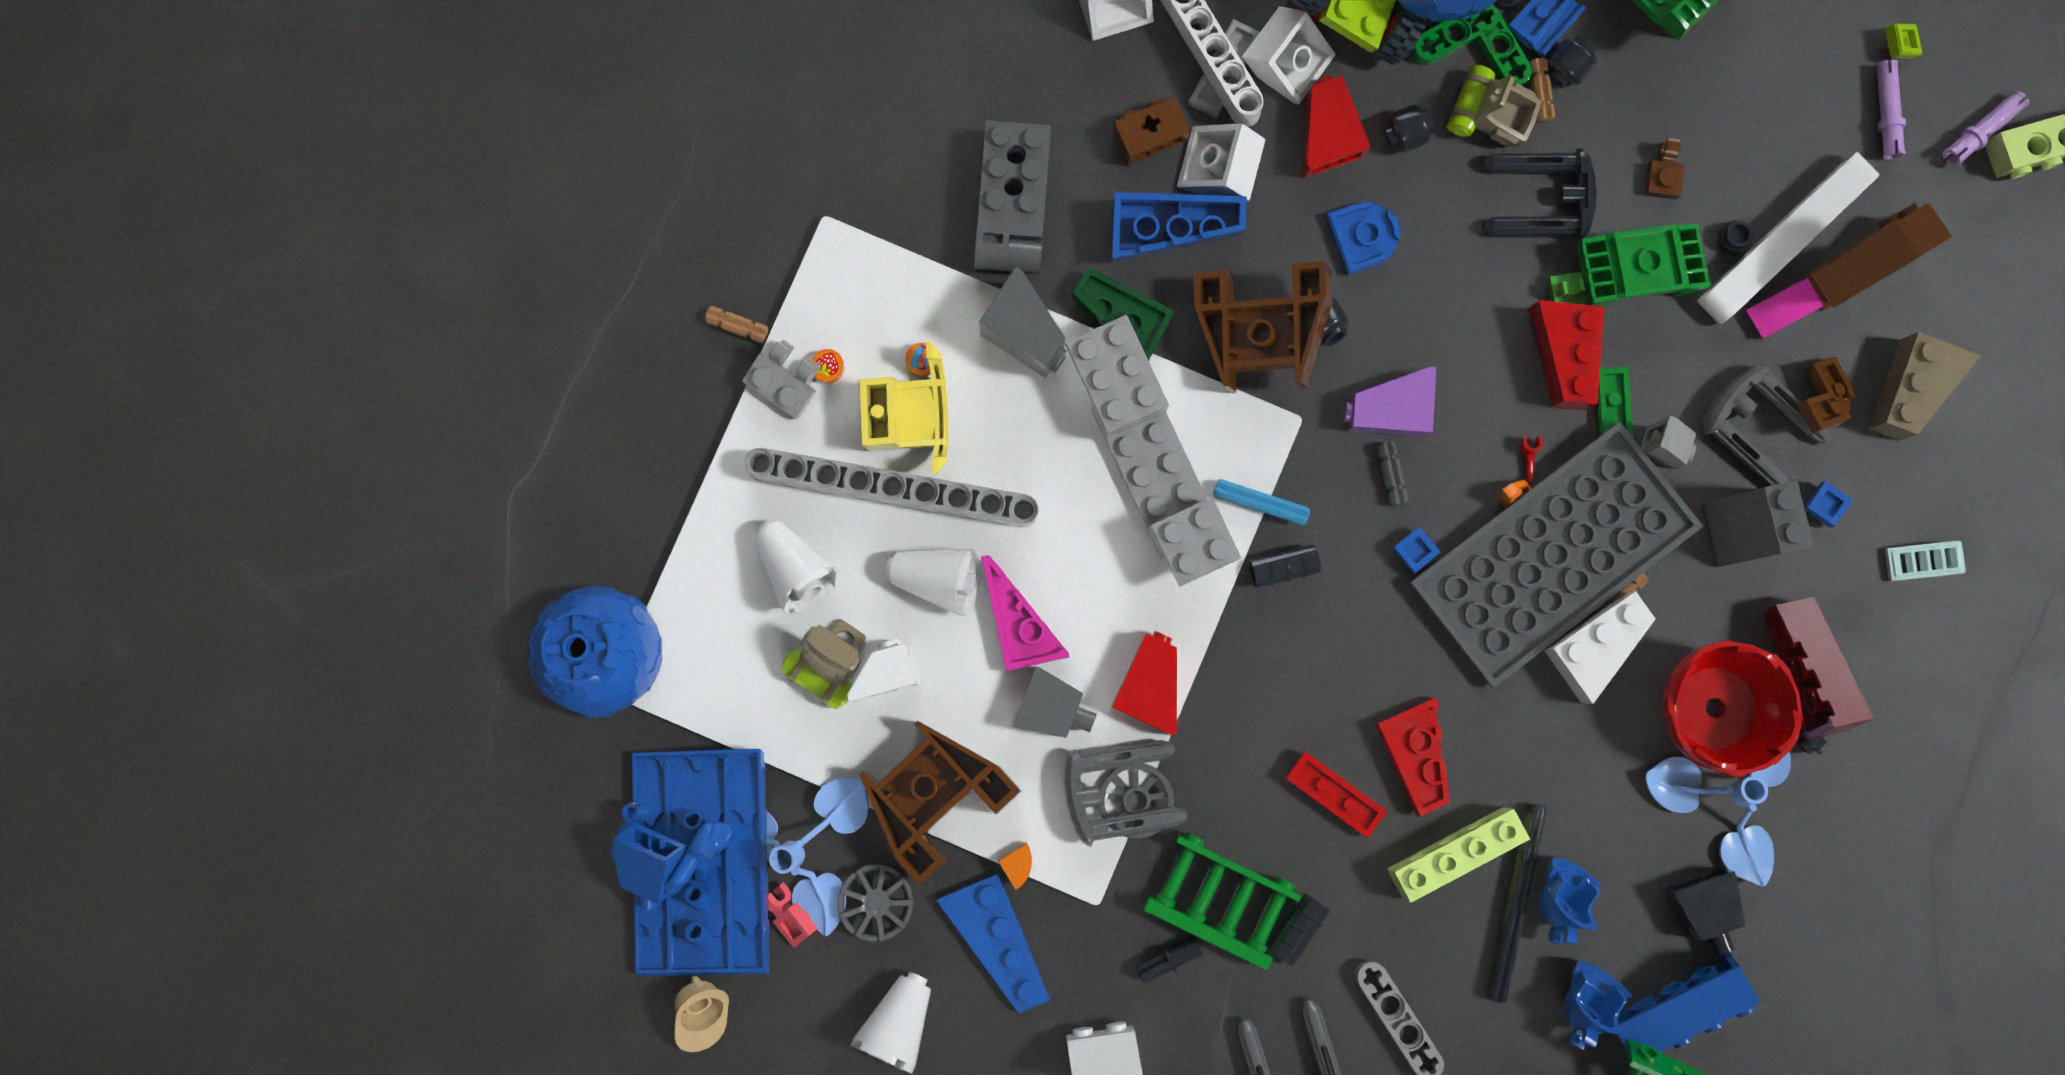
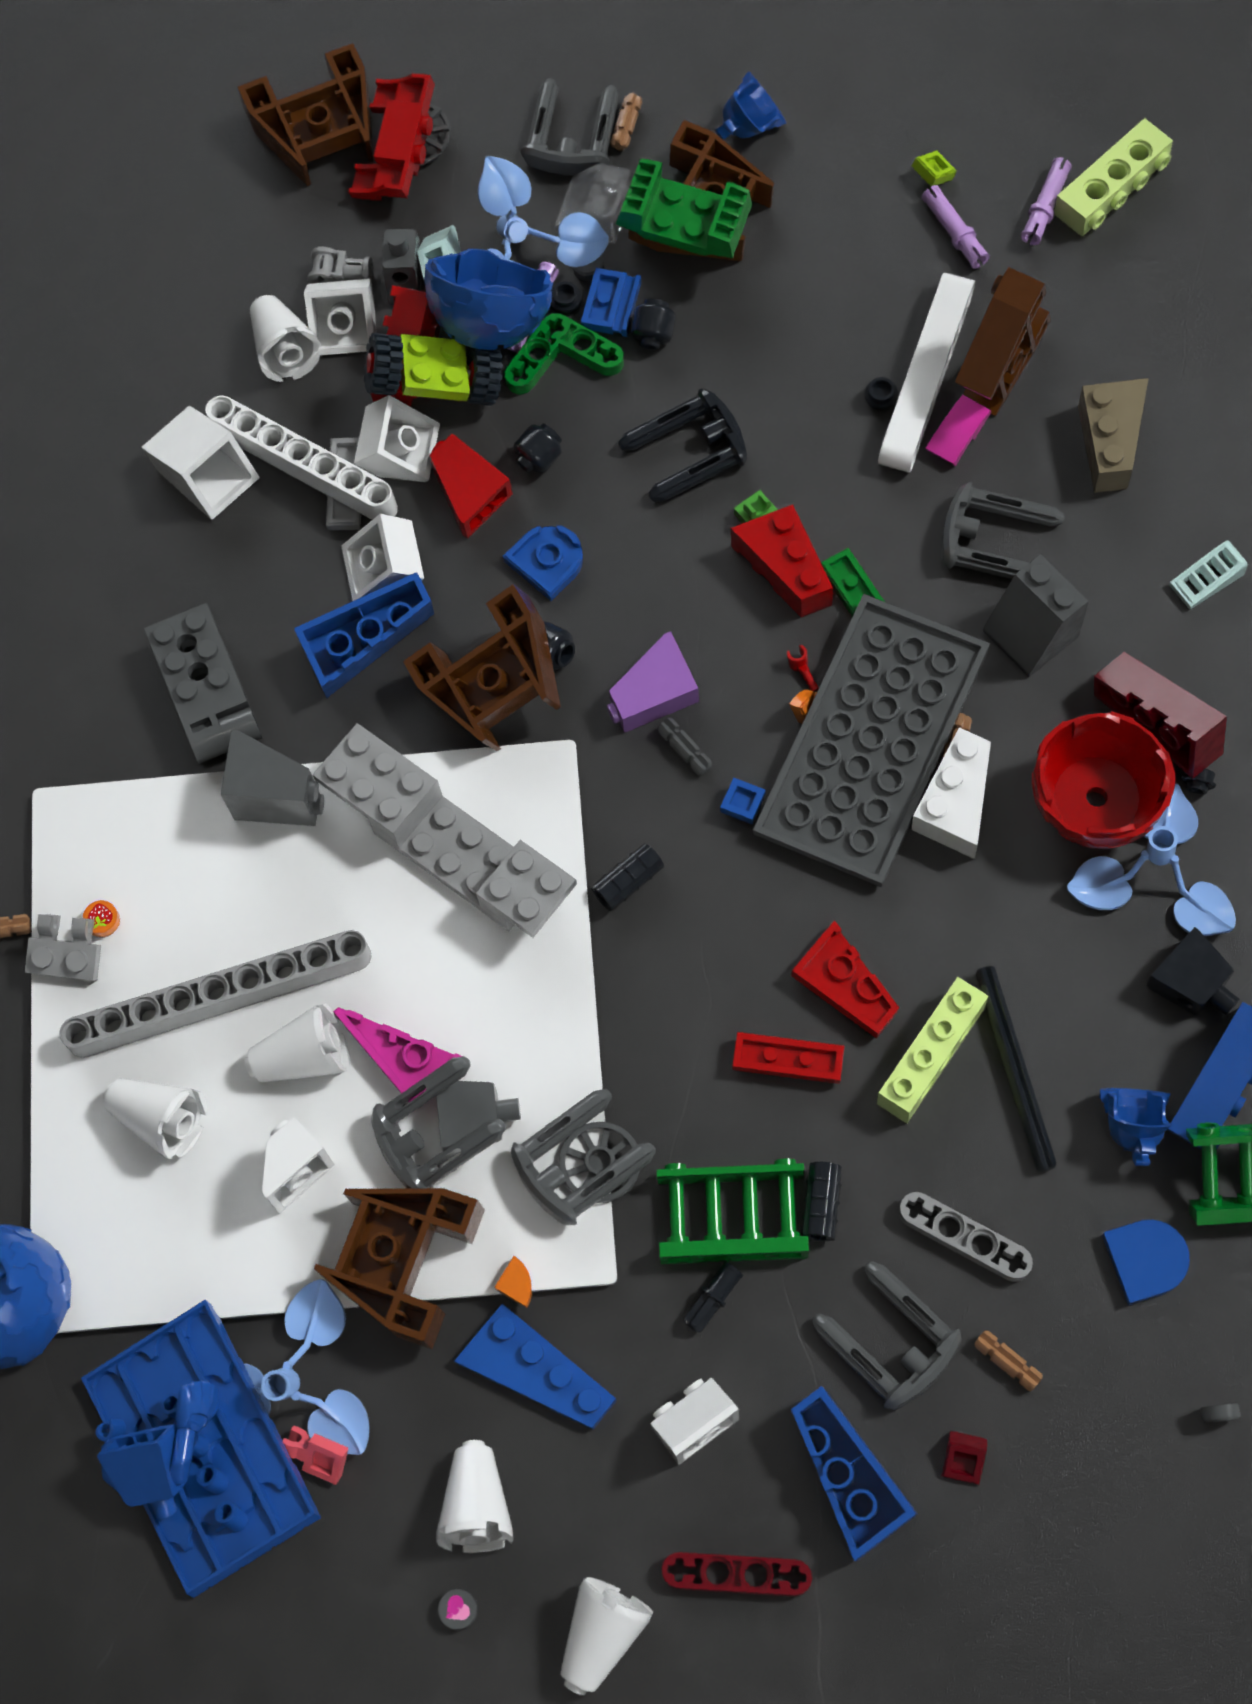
camera: 15 degrees left, 15 degrees down
(699, 1015) = (273, 1599): tan piece -> none
(825, 662) = (229, 1185): dark tan piece -> none
(875, 903) = (395, 1395): dark grey wheel -> none
(907, 412) = (196, 919): light yellow piece -> none
(917, 360) = (189, 867): orange tile -> none
(977, 705) = (399, 1149): none -> dark grey piece
(1109, 300) = (328, 727): dark green wing -> none
(1141, 144) = (303, 566): reddish brown brick -> none
(1151, 684) = (556, 1047): red slope -> none
(1261, 502) = (575, 830): dark azure axle -> none
(1495, 107) = (604, 393): dark tan piece -> none
(1542, 88) = (640, 361): medium nougat axle -> none
(1568, 900) = (1058, 1037): blue helmet -> none
(1643, 263) = (809, 453): green plate -> none
(1665, 175) = (788, 376): reddish brown plate -> none
(1669, 442) = (920, 588): light grey slope -> none
(1827, 504) = (1093, 571): blue plate -> none
(1833, 398) = (1042, 481): reddish brown plate -> none

